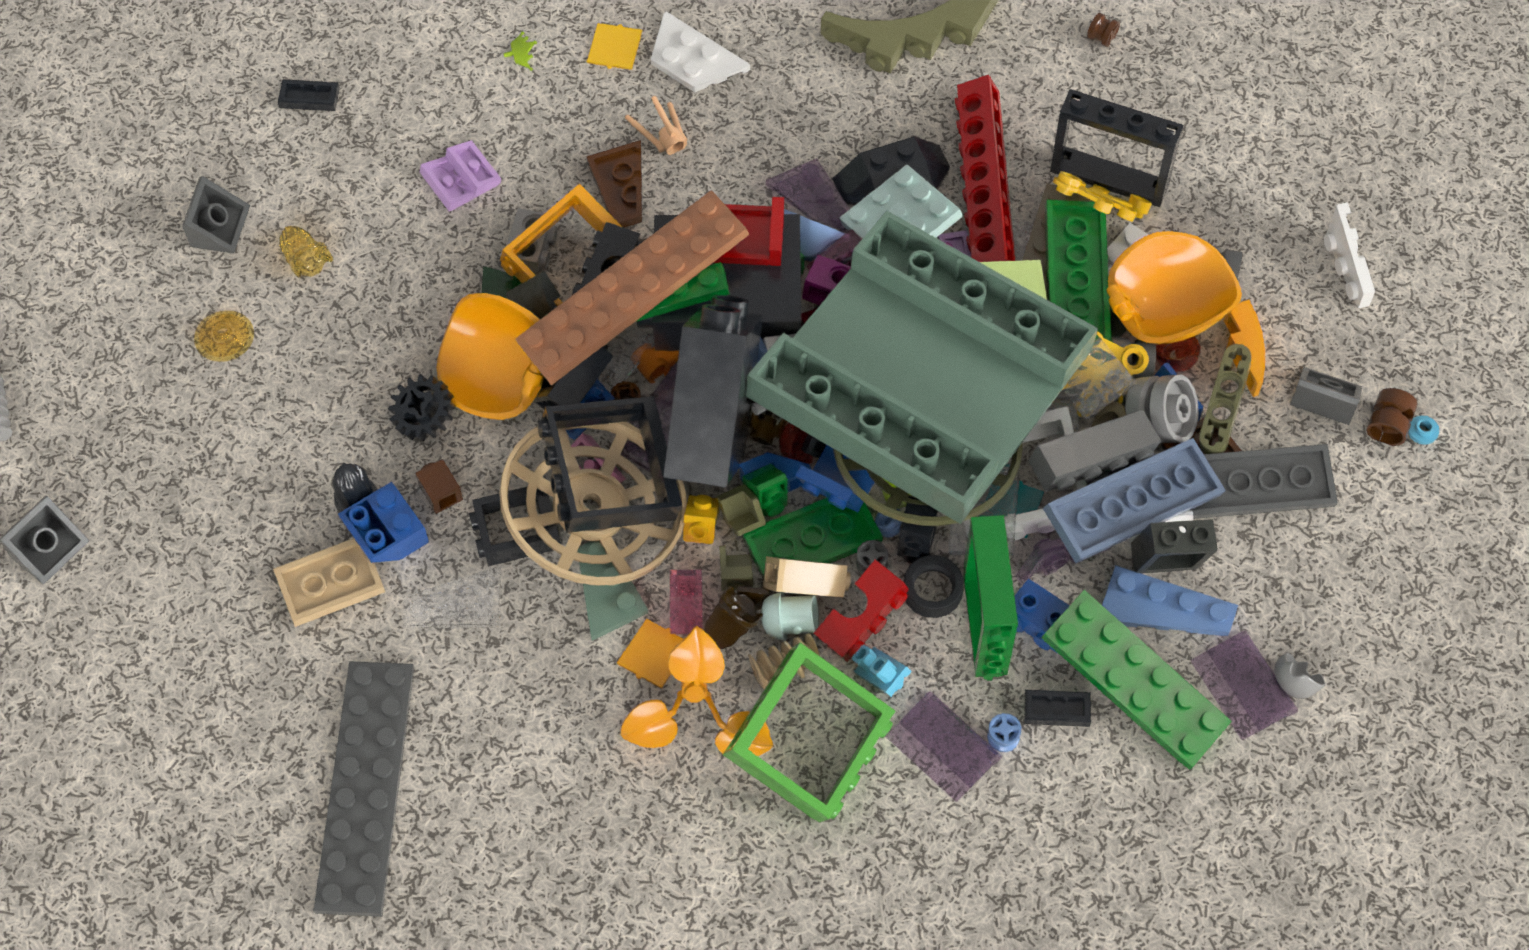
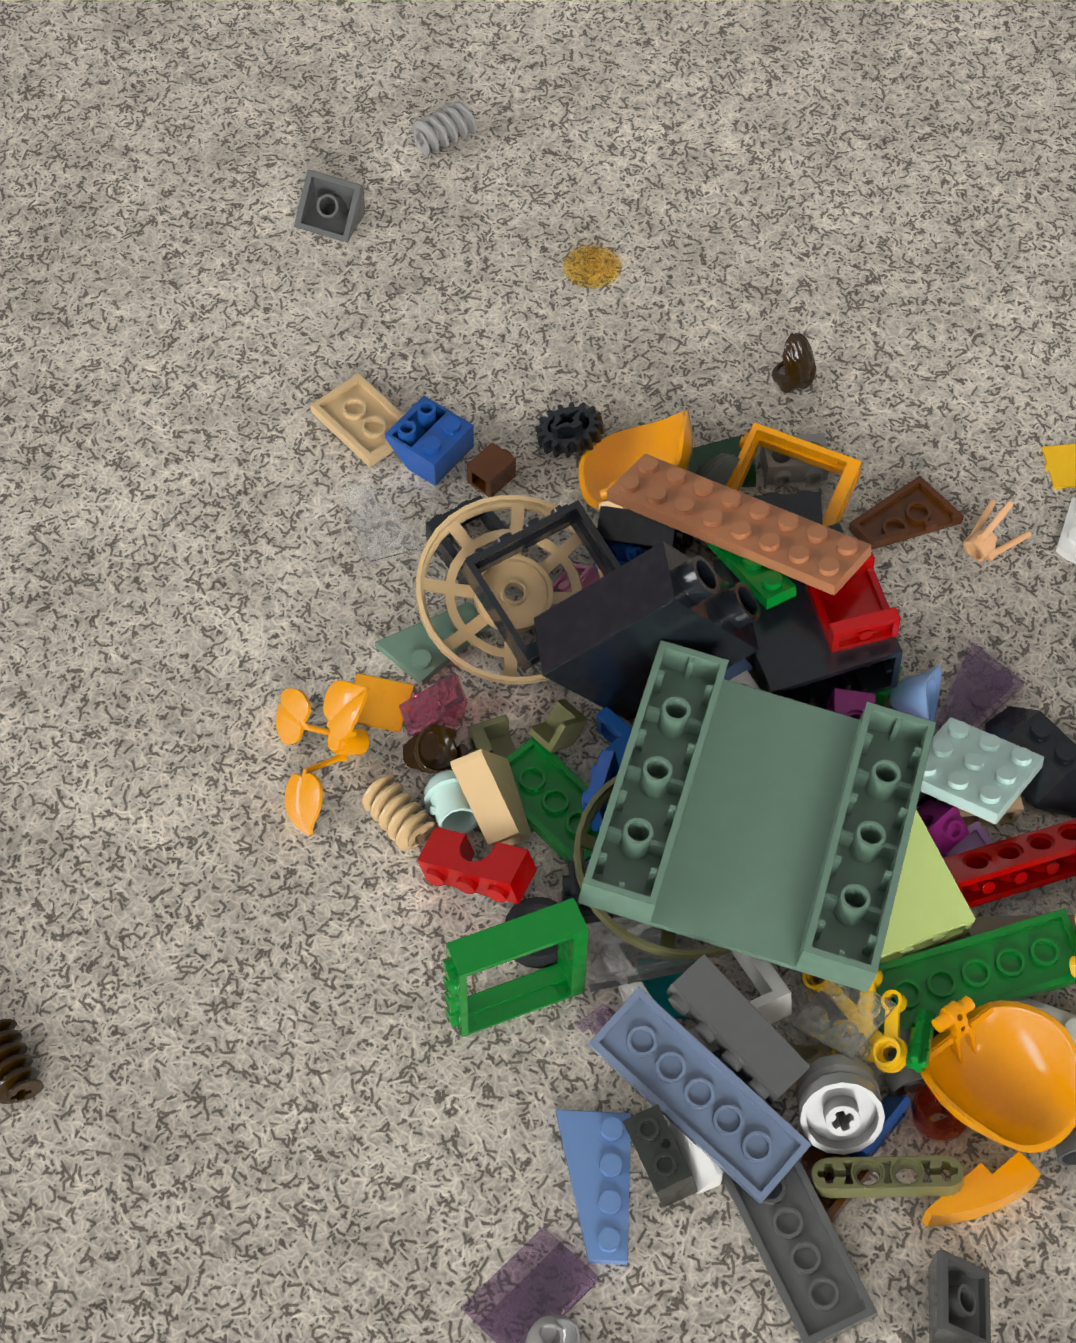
camera: 70 degrees right, 5 degrees down
(214, 218) = (708, 212): dark grey slope -> none
(303, 252) = (701, 291): clear yellow piece -> none
(308, 95) = (881, 240): black plate -> none
(351, 486) = (459, 398): black piece -> none
(364, 790) = (167, 513): dark grey plate -> none
(435, 203) = (798, 364): none -> dark brown piece
(470, 169) = (850, 384): lavender slope -> none
(520, 50) = (1025, 387): lime piece -> none
(700, 519) = (537, 694): yellow bracket -> none
(740, 755) = (319, 914): bright green window -> none
(770, 488) = (585, 739): green slope -> none
(870, 551) = (550, 857): dark grey wheel -> none
(880, 669) = (416, 903): medium azure hips -> none
(943, 746) = (357, 994): clear purple piece -> none
(1004, 725) = (384, 1038): medium blue wheel -> none
(1037, 611) = (537, 1050): blue brick -> none
(1057, 708) = (433, 1094): black plate -> none
(1131, 333) = (920, 1040): none -> green axle
(1136, 679) = (486, 1164): plate -> none

